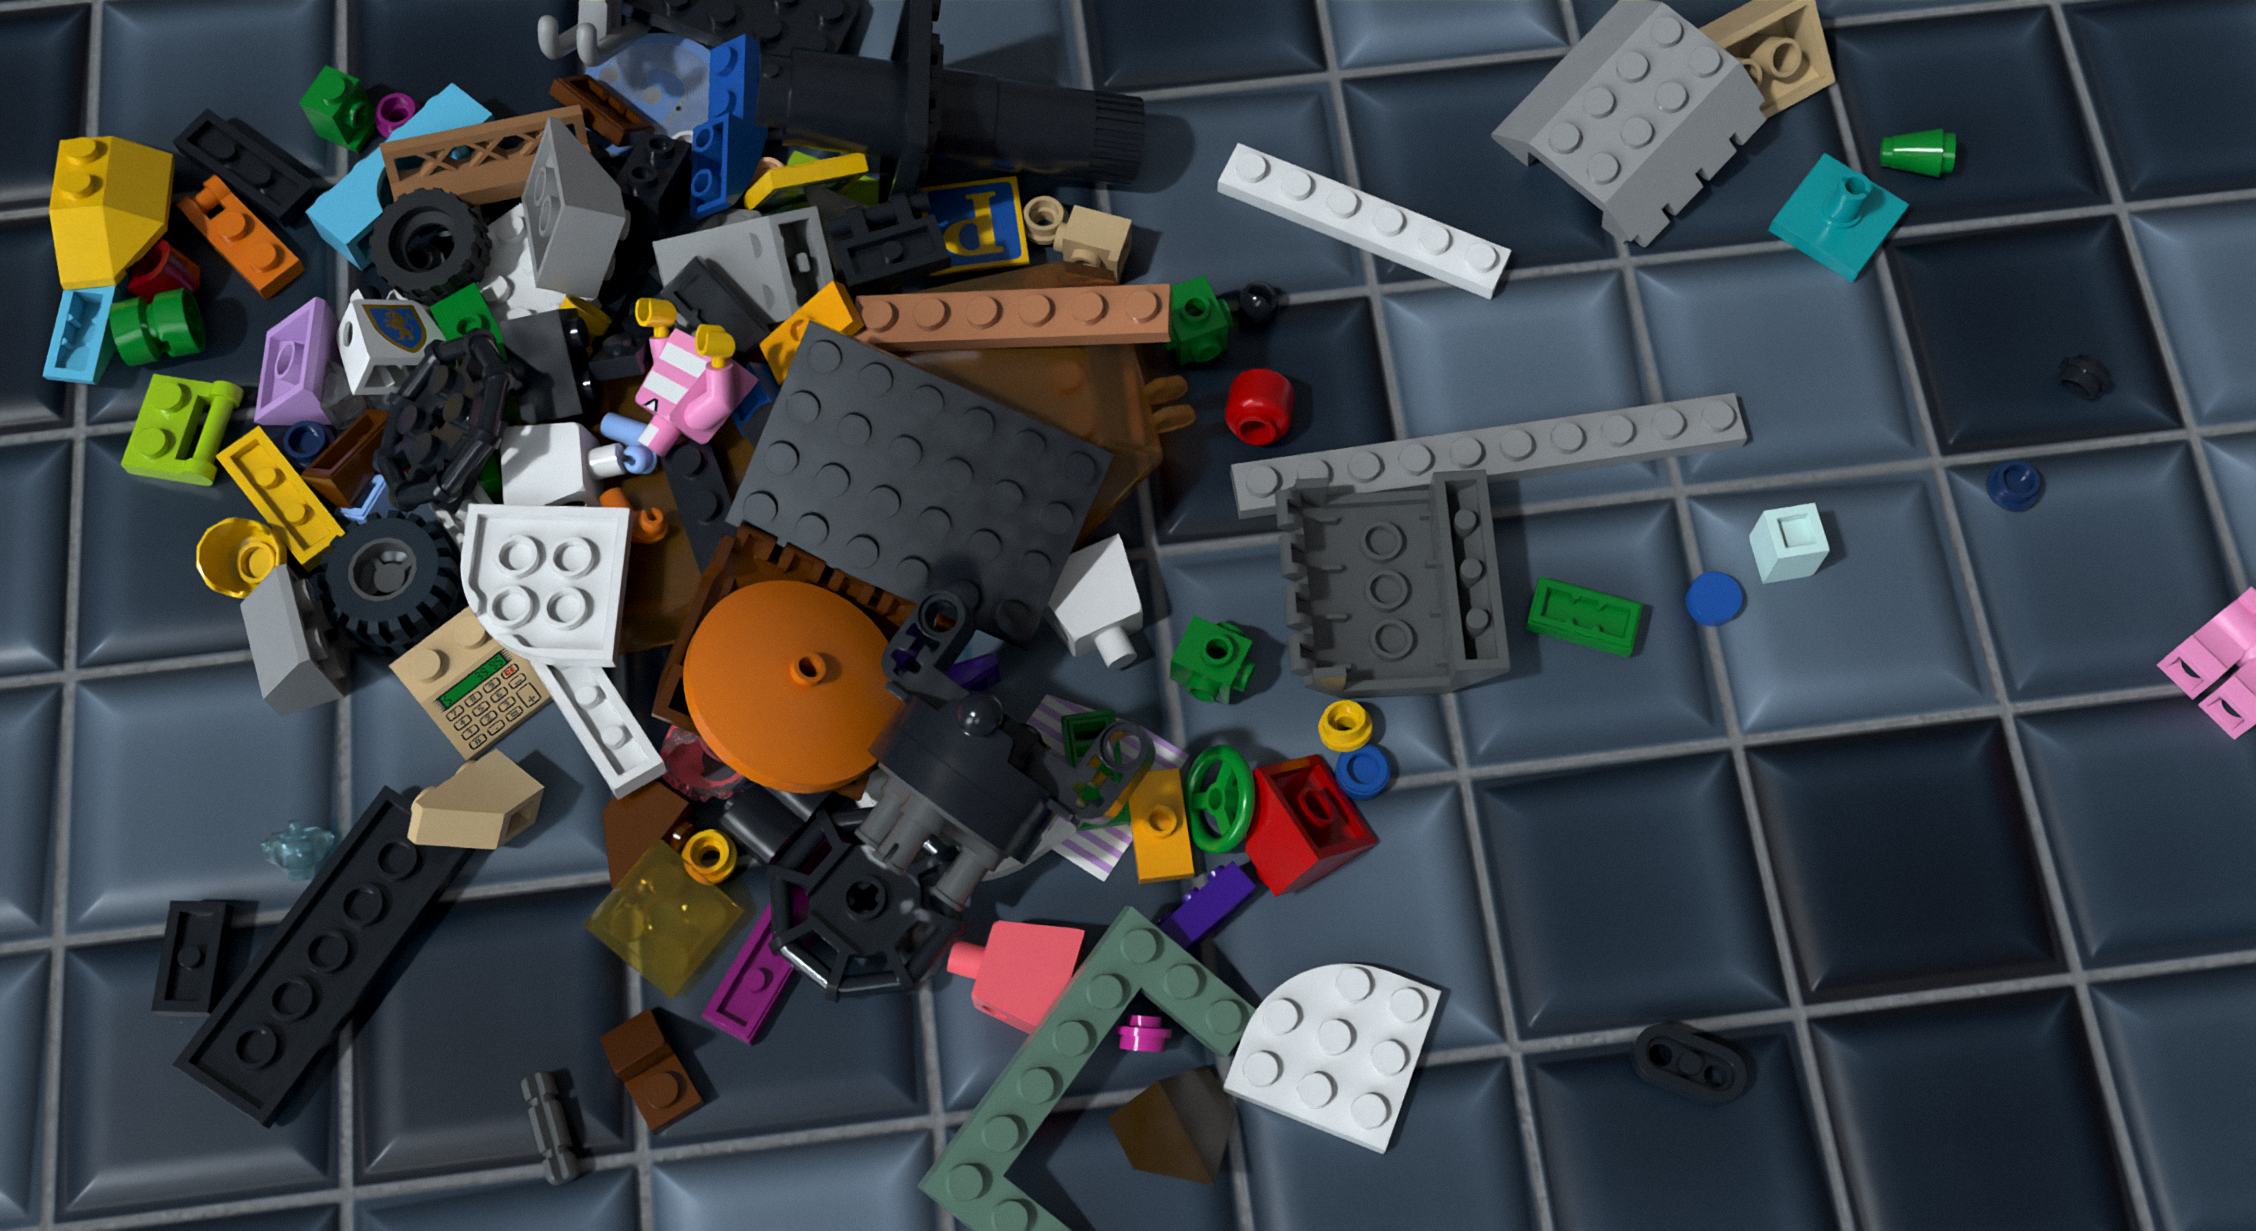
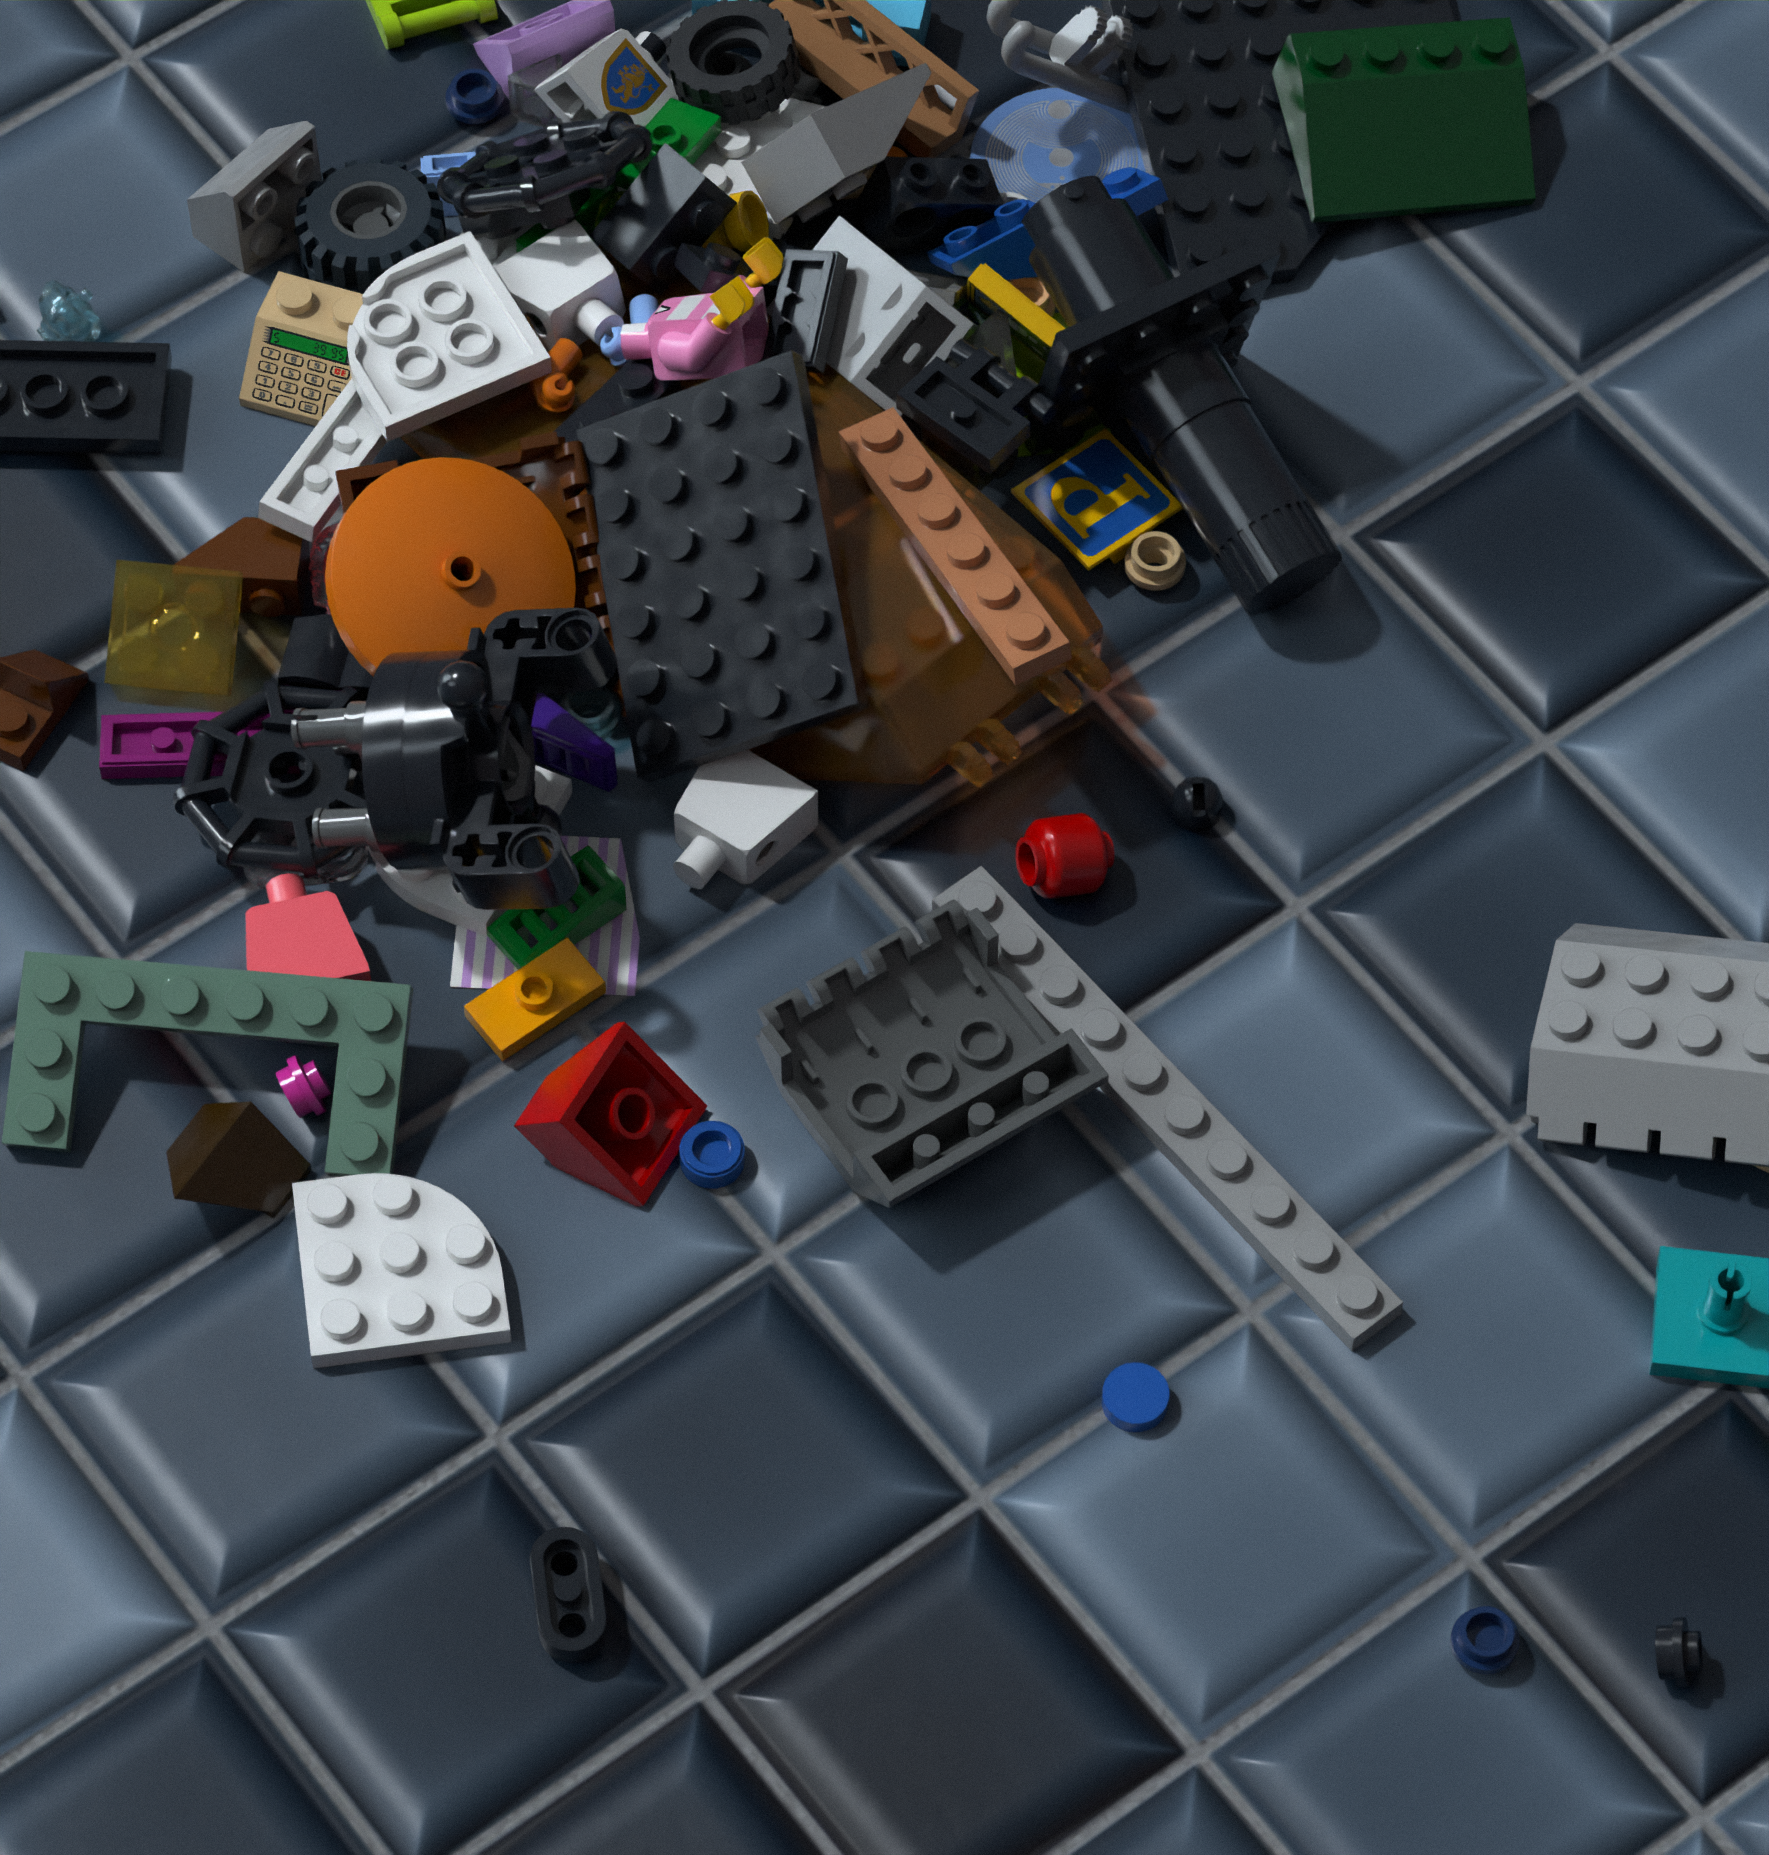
camera: 60 degrees right, 10 degrees down
(238, 555) = (325, 98): yellow hair -> none
(281, 497) = (408, 100): yellow plate -> none
(346, 464) = (458, 131): reddish brown slope -> none
(477, 806) = (188, 420): tan slope -> none
(601, 109) = (1001, 120): reddish brown plate -> none
(711, 841) = (259, 626): yellow plate -> none
(829, 306) = (846, 394): light orange plate -> none
(1095, 239) = (1154, 618): tan brick -> none
(1198, 322) = (1118, 743): green brick -> none
(1206, 908) = (462, 1080): dark purple piece -> none
(1213, 661) = (737, 948): green brick -> none
(1228, 799) = (585, 1024): green piece -> none
(1345, 715) = (748, 1108): yellow plate -> none
(1364, 221) = (1371, 855): white plate -> none
(1584, 617) = (1023, 1275): green plate -> none
(1789, 543) = (1238, 1425): light aqua panel -> none

